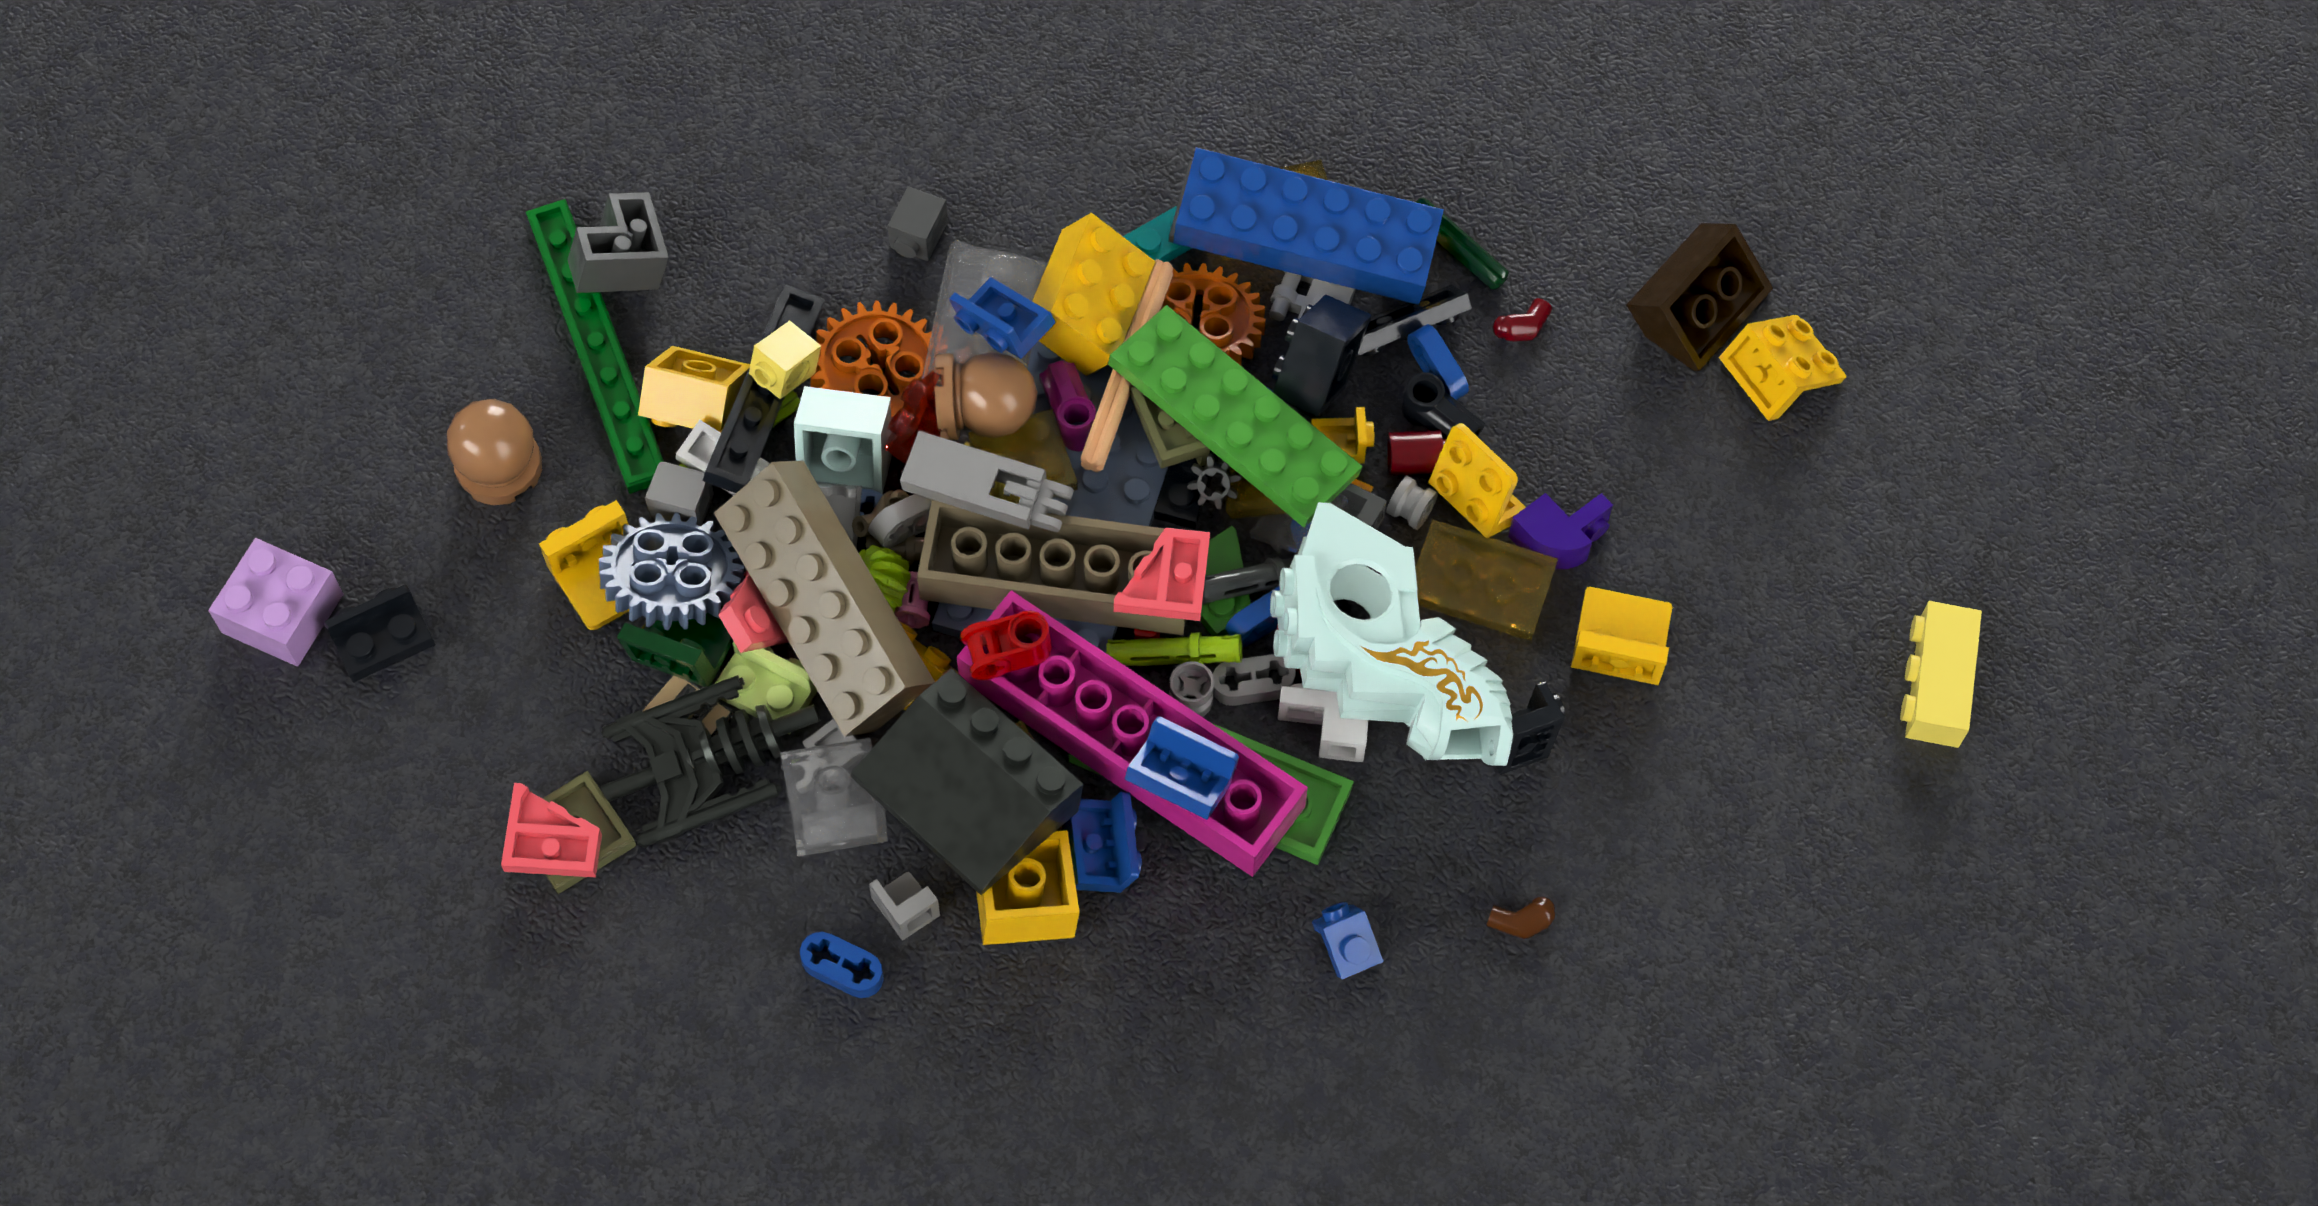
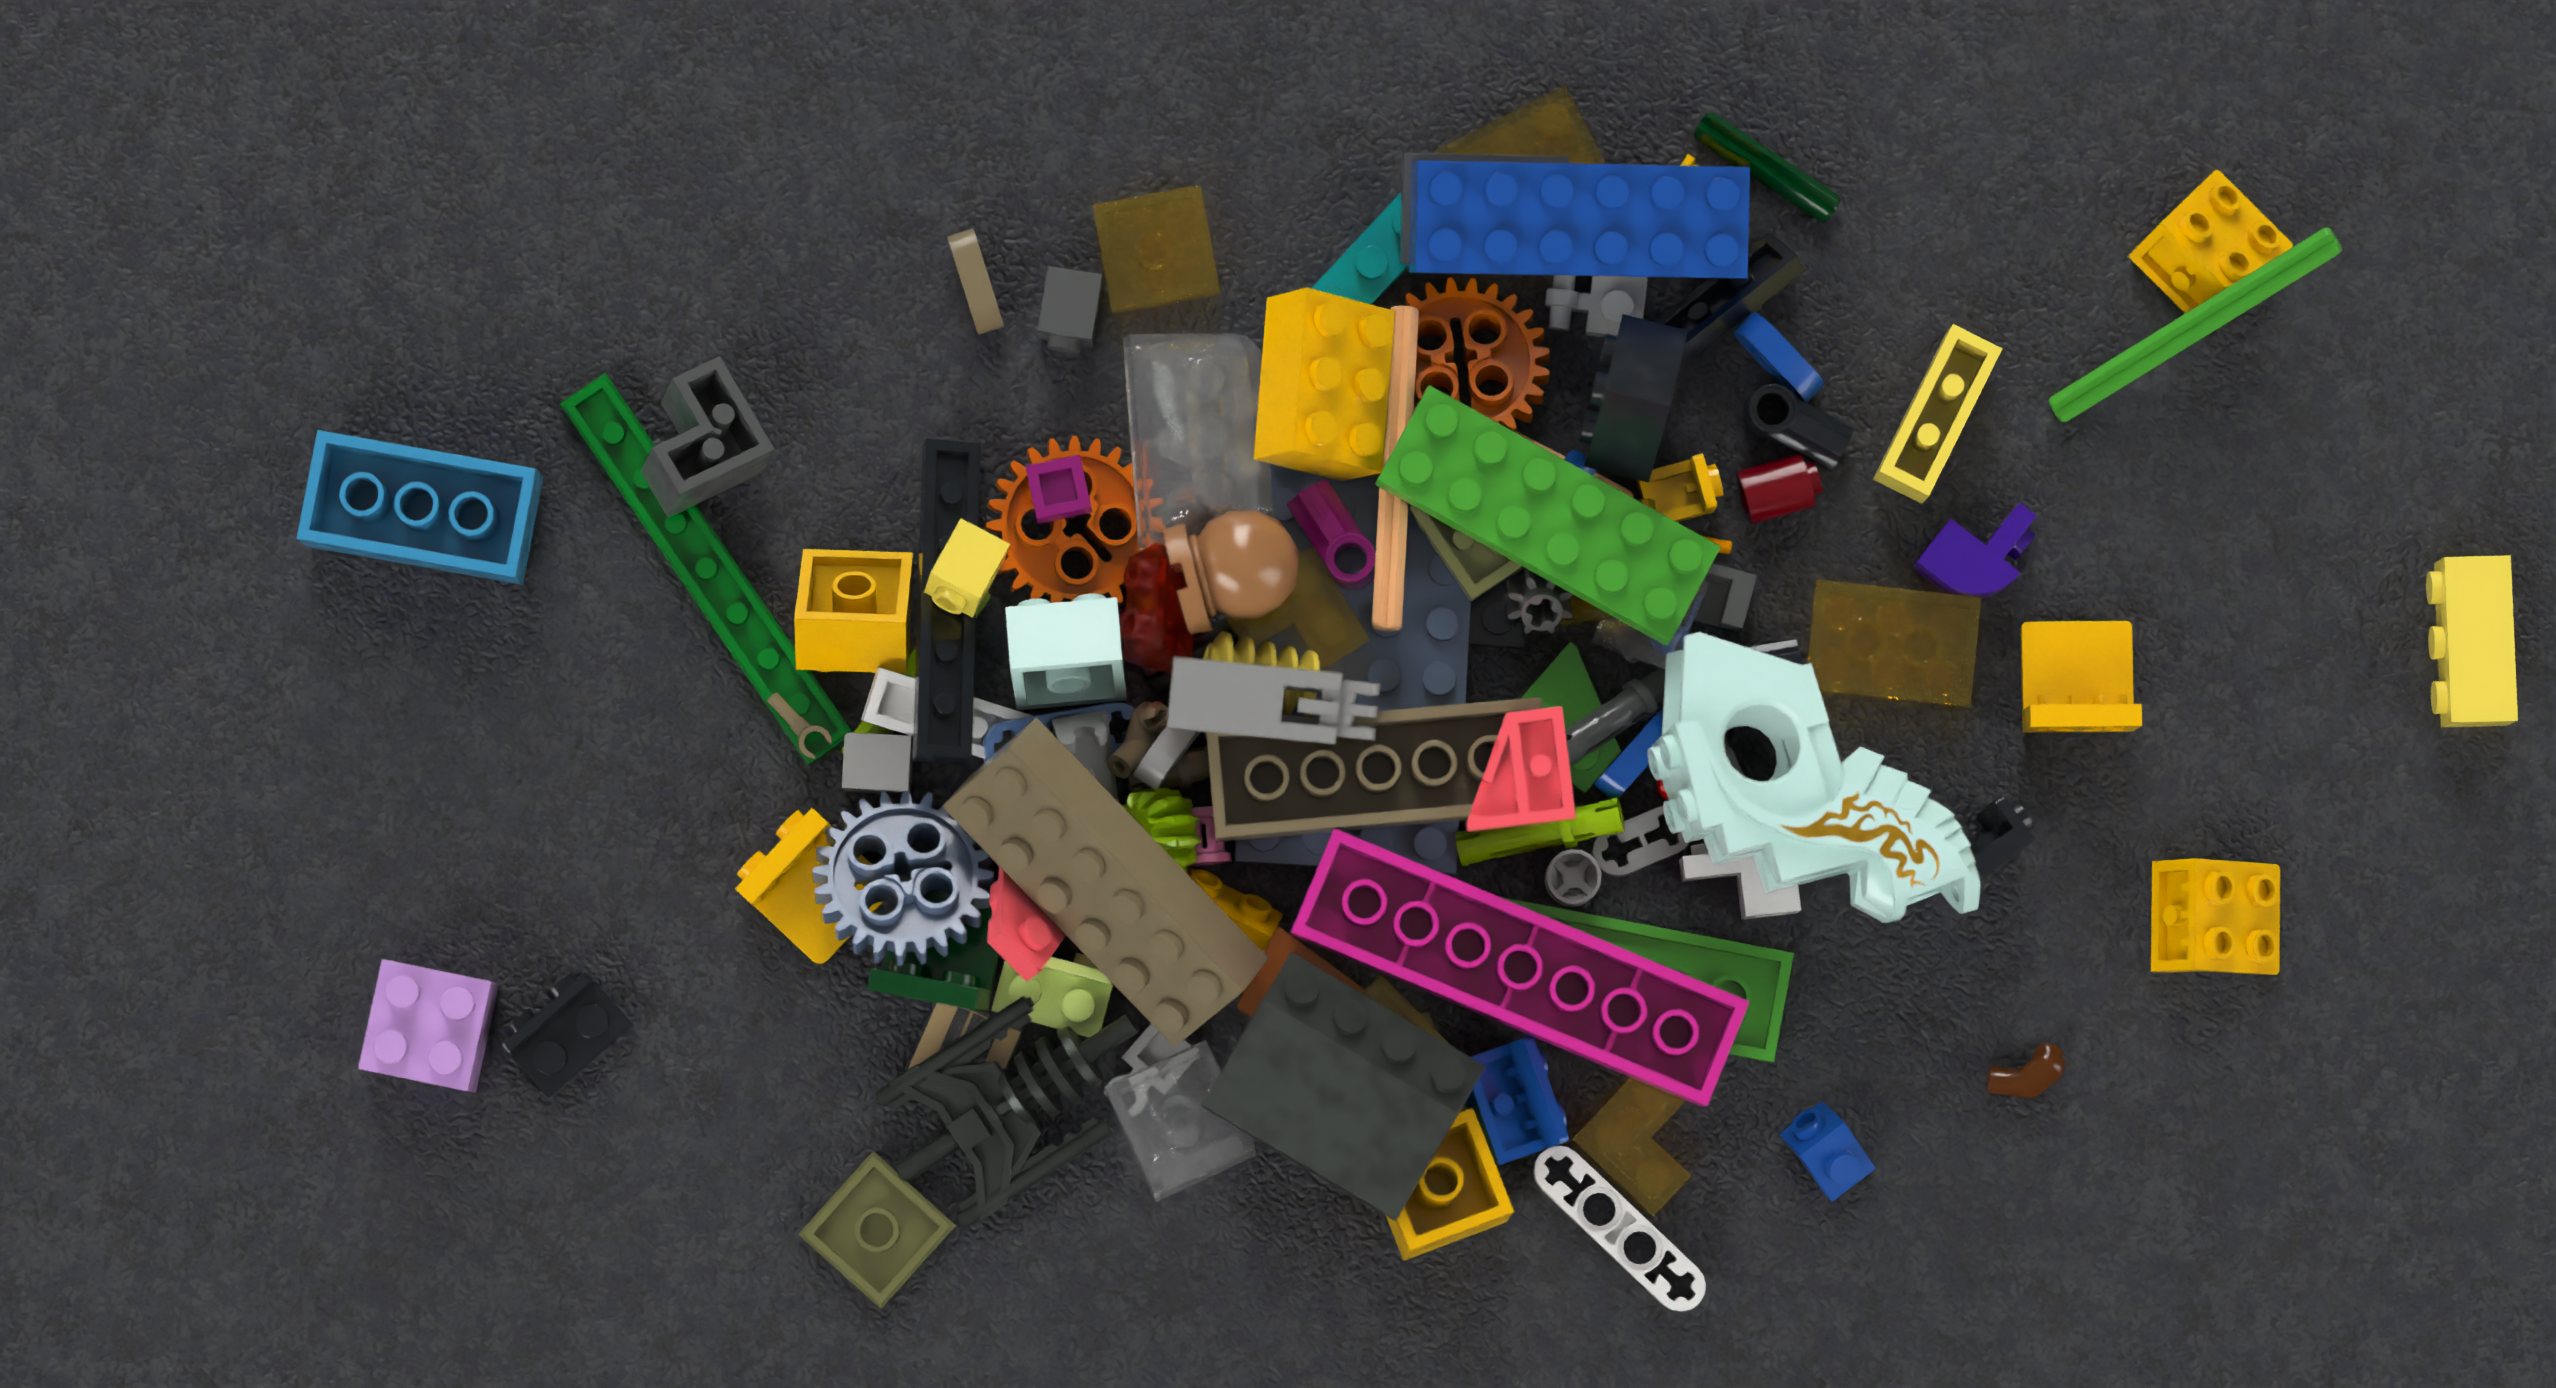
camera: 15 degrees left, 20 degrees up
(398, 249) = (420, 507): none -> dark azure brick
(493, 451) = (632, 764): medium nougat tile -> none
(548, 839) = (857, 1255): coral wing -> none
(629, 456) = (797, 723): none -> dark tan hand
(837, 974) = (1240, 1334): blue beam -> none
(853, 194) = (975, 281): none -> dark tan beam
(870, 325) = (1058, 489): none -> magenta plate
(905, 904) = (1297, 1226): light grey panel -> none
(992, 202) = (1156, 249): none -> clear yellow plate
(1002, 318) = (1235, 466): blue bracket -> none
(1004, 646) = (1346, 914): red piece -> none
(1159, 965) = (1624, 1222): none -> white beam
(1183, 768) = (1600, 1025): blue bracket -> none
(1184, 899) = (1623, 1147): none -> clear yellow plate
(1412, 502) = (1786, 560): light grey wheel -> none
(1476, 482) = (1863, 531): yellow bracket -> none
(1523, 326) = (1875, 270): dark red arm -> none
(1552, 421) = (1937, 413): none -> light yellow brick
(1699, 827) = (2215, 916): none -> yellow bracket
(1701, 294) = (2090, 175): dark brown slope -> none
(1762, 397) = (2195, 324): none -> bright green axle

